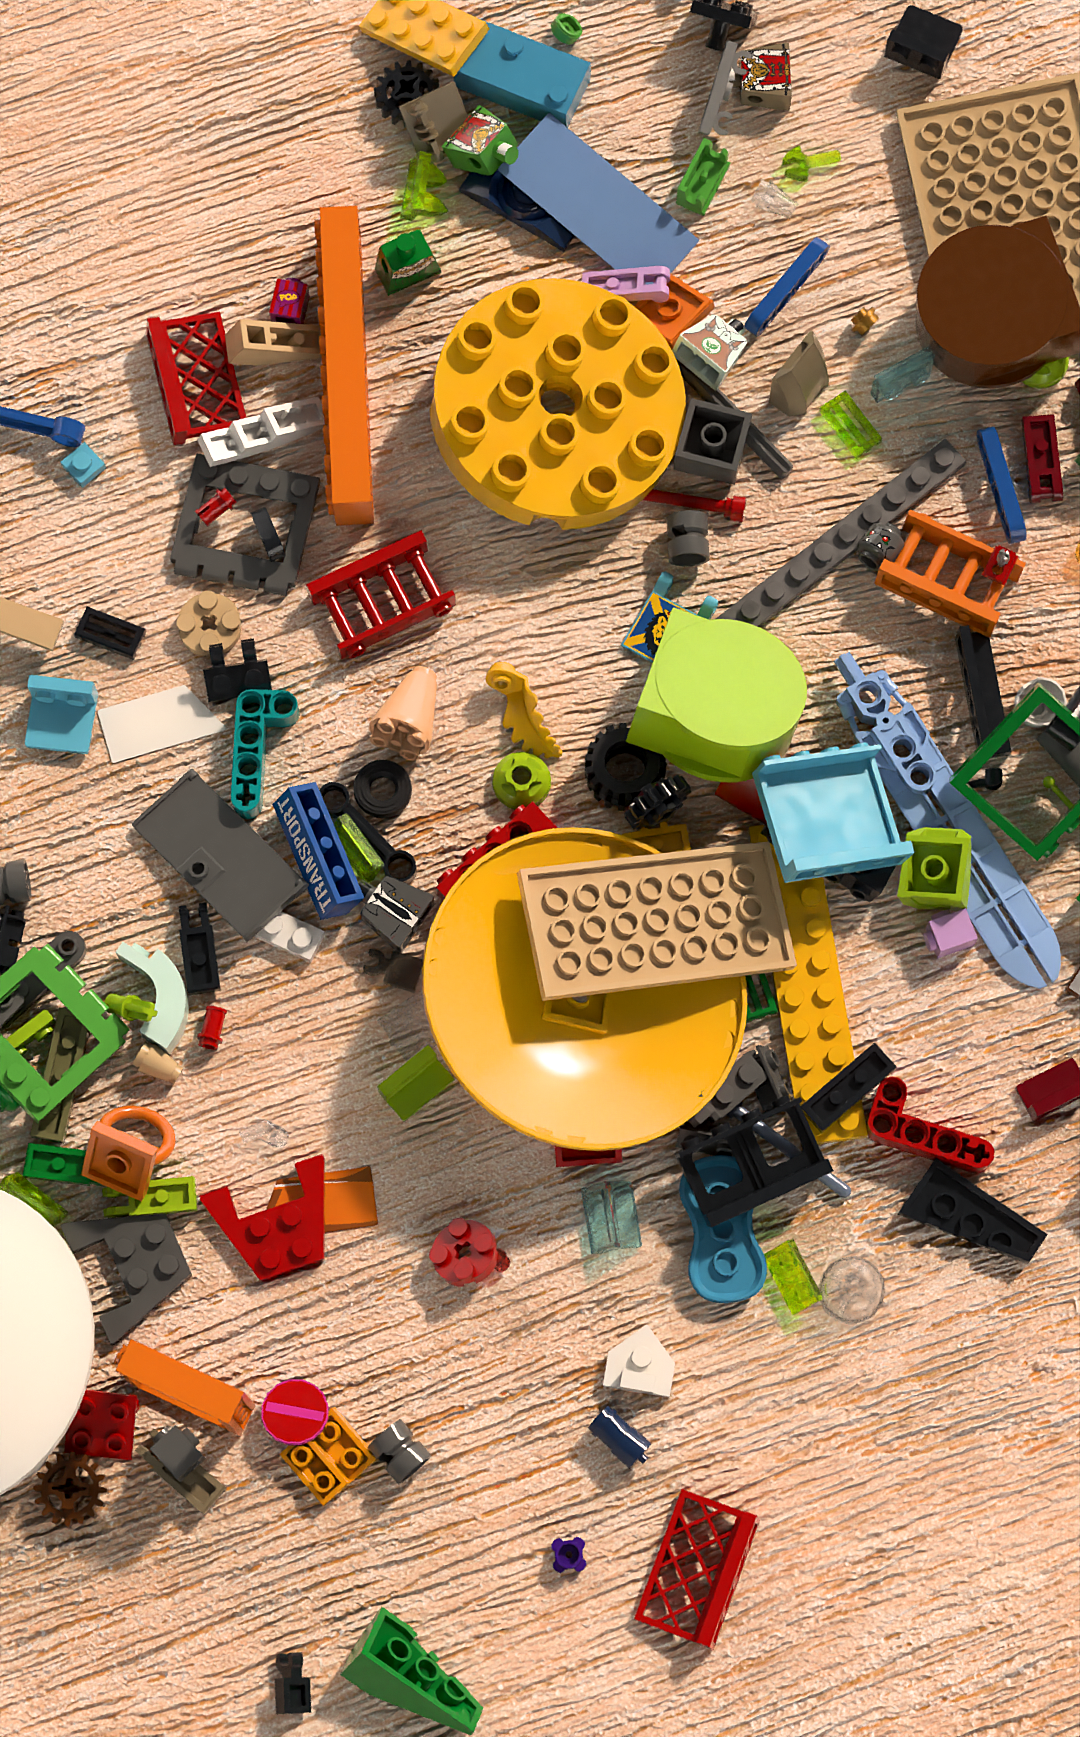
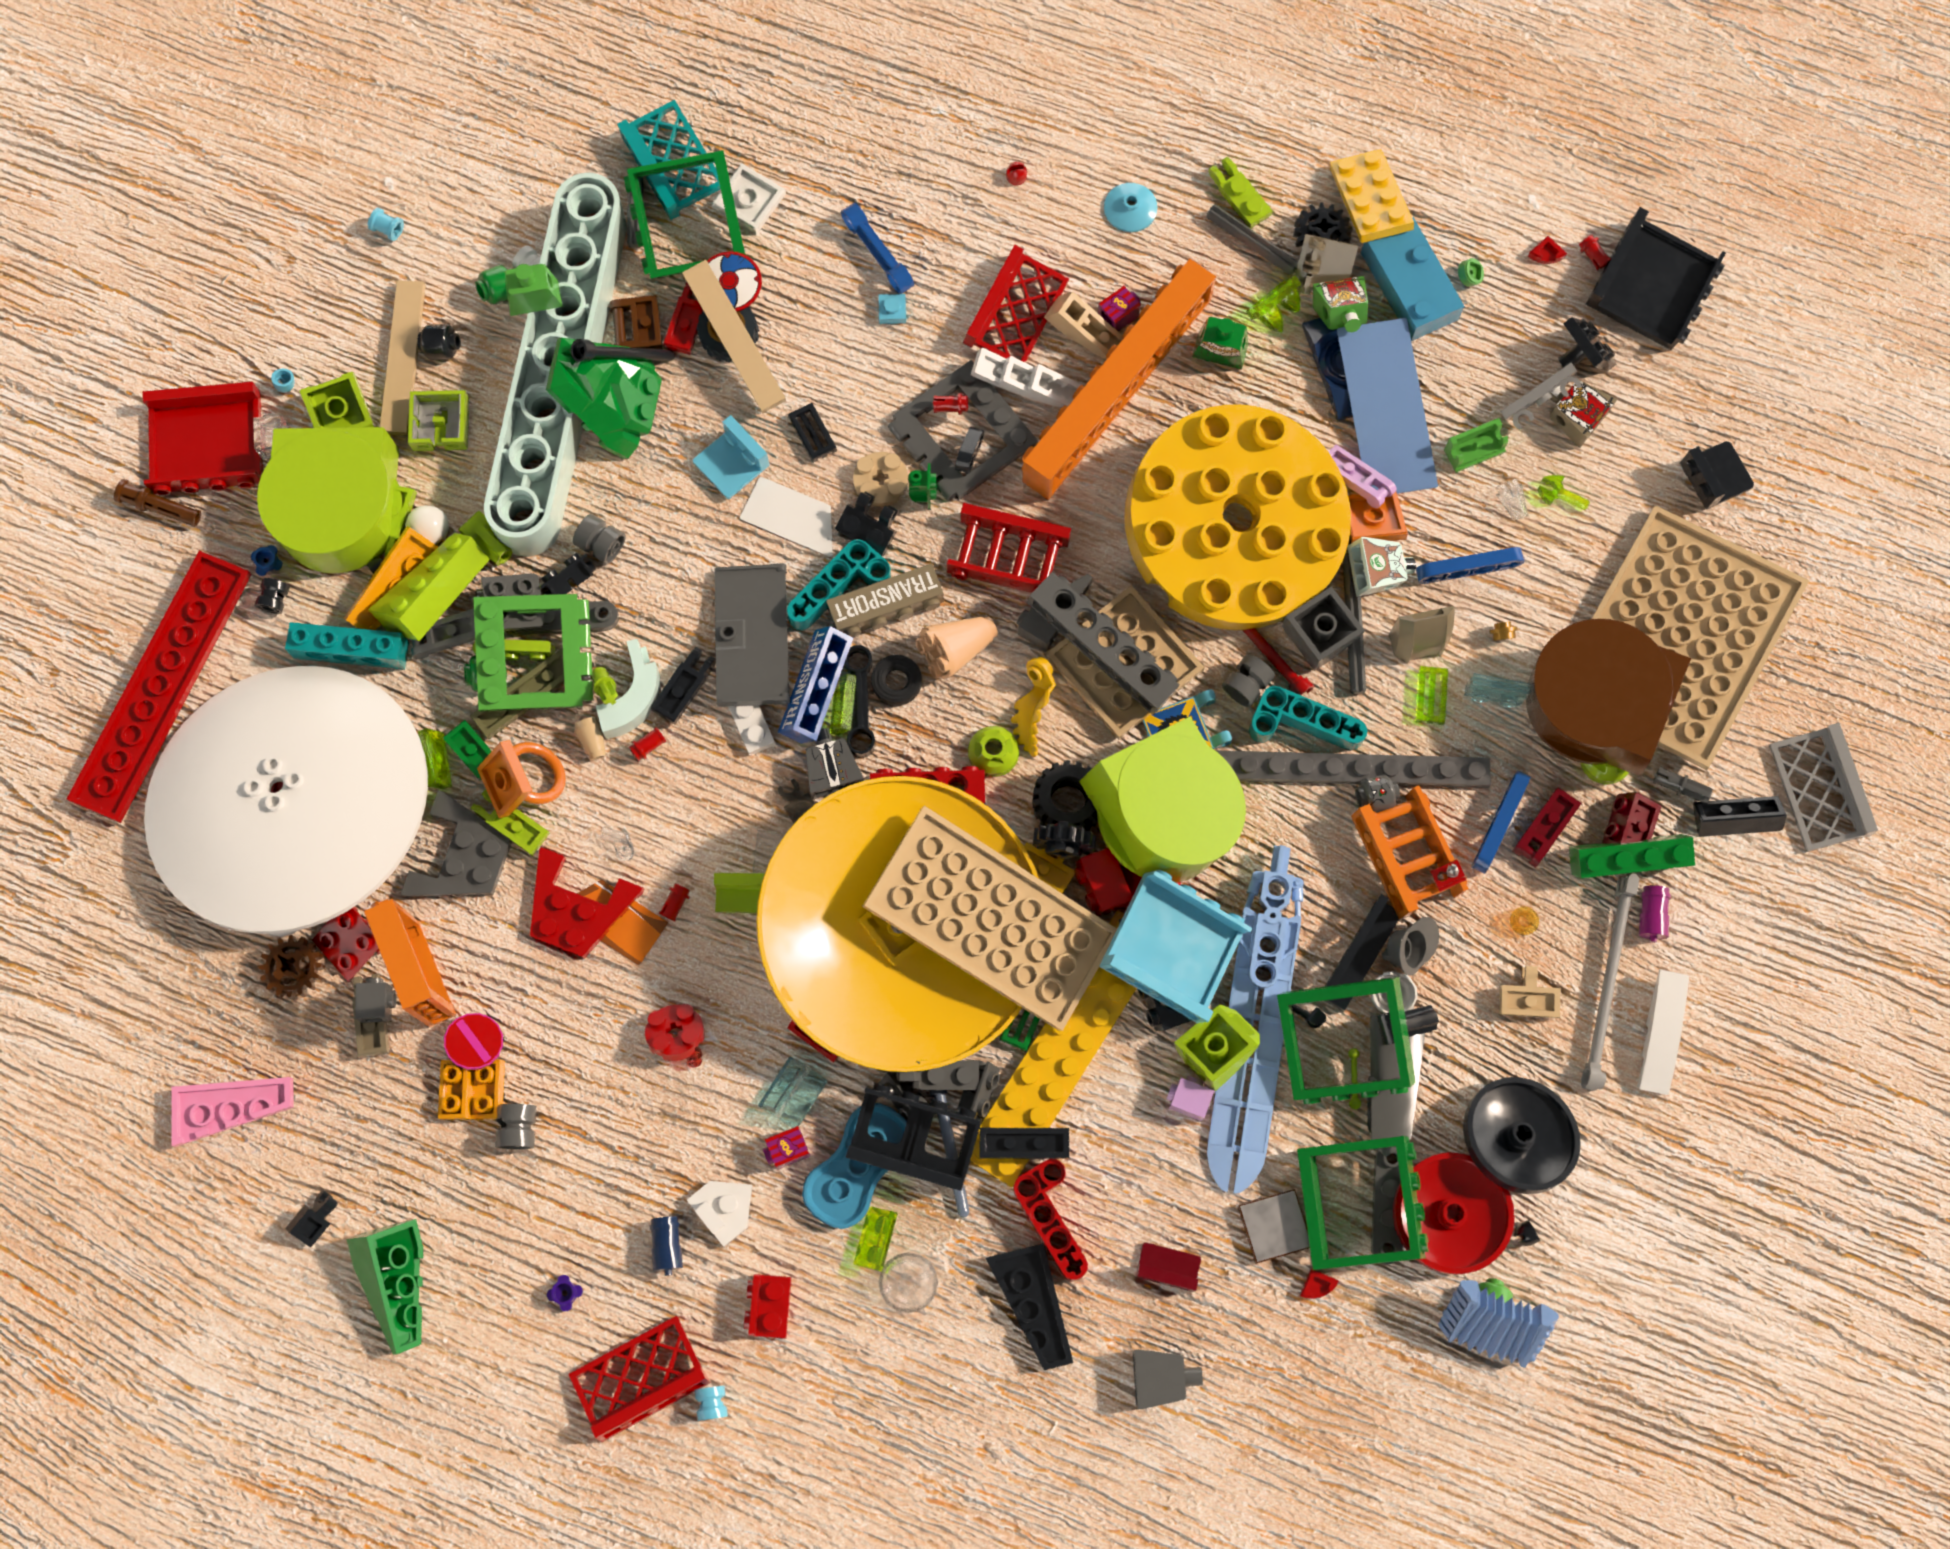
camera: 40 degrees right, 0 degrees up
(90, 257) = (1018, 176): none -> red hinge
(118, 1664) = (217, 1107): none -> bright pink wing
(220, 216) = (1130, 217): none -> medium azure dish
(258, 598) = (922, 486): none -> green hinge
(303, 116) = (1240, 194): none -> lime hinge
(313, 727) = (886, 601): none -> dark tan brick
(350, 149) = (1252, 239): none -> dark grey axle
(361, 1142) = (674, 902): none -> red pin
(467, 622) = (1038, 630): none -> dark grey slope
(524, 616) = (1106, 658): none -> dark grey brick
(567, 609) = (1100, 692): none -> tan plate
(649, 1267) = (786, 1148): none -> brick
(717, 812) = (1103, 882): none -> red brick
(753, 1412) = (768, 1306): none -> red bracket
(772, 533) = (1308, 724): none -> teal beam
(778, 1534) = (711, 1404): none -> medium azure wheel
(1020, 651) = (1413, 945): none -> dark grey piece

